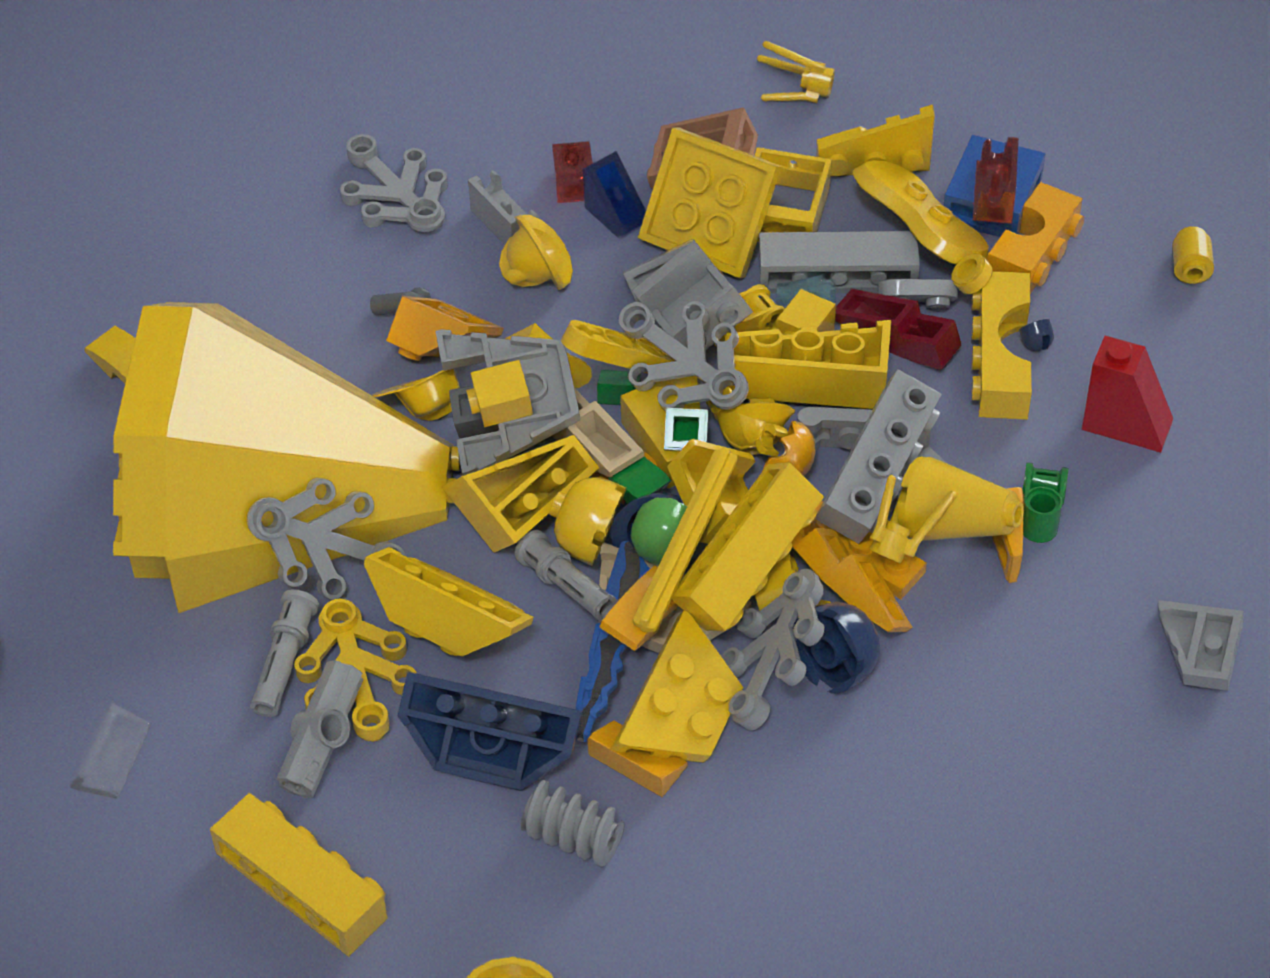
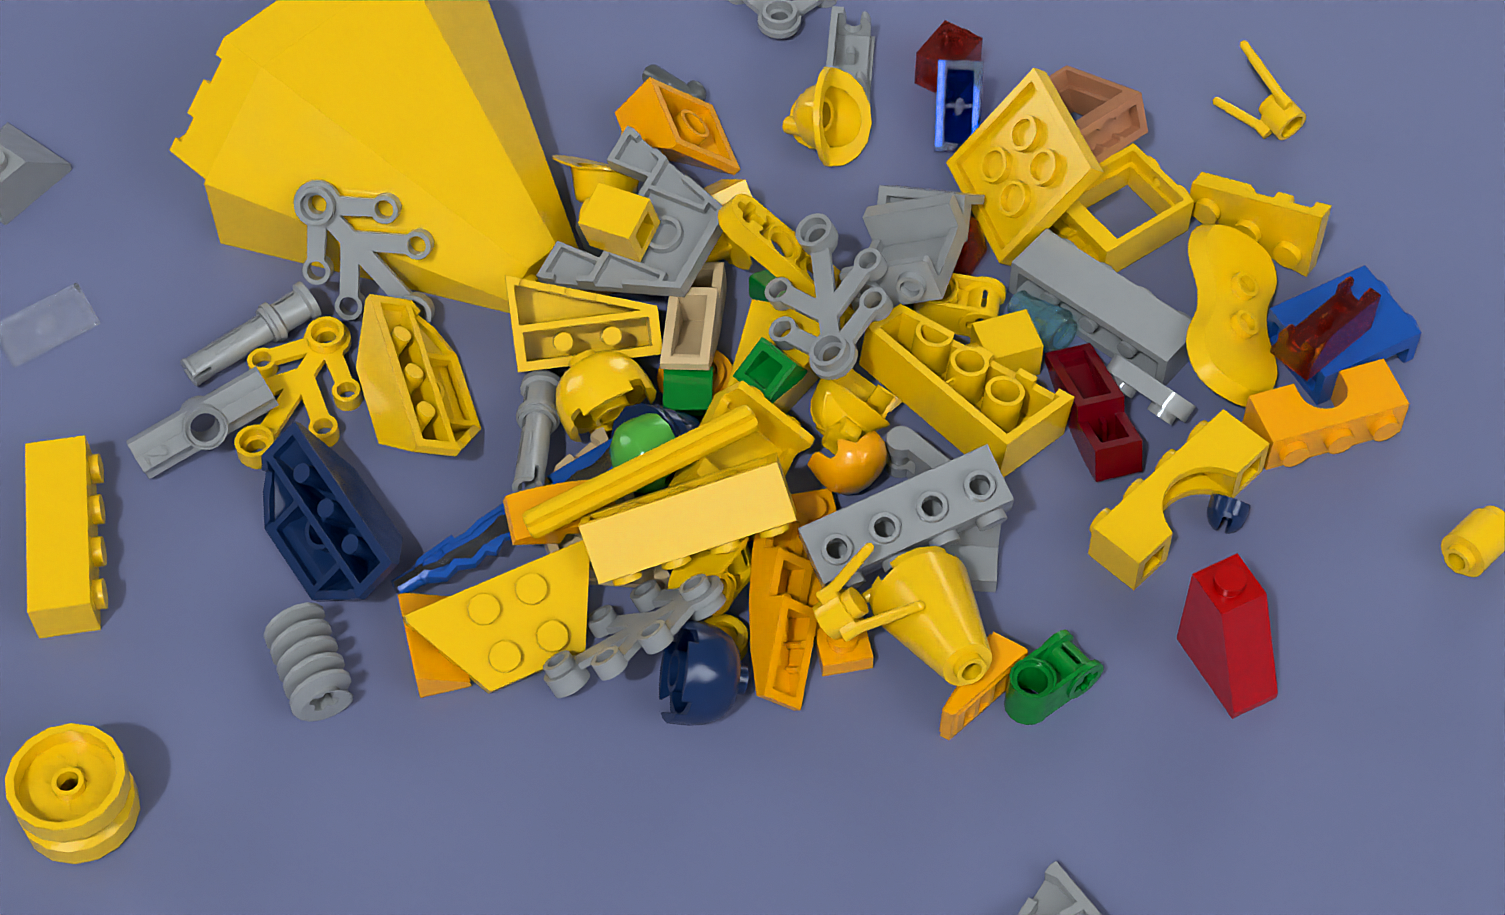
camera: 40 degrees right, 5 degrees up
(971, 273) = (1209, 404): yellow tile -> none

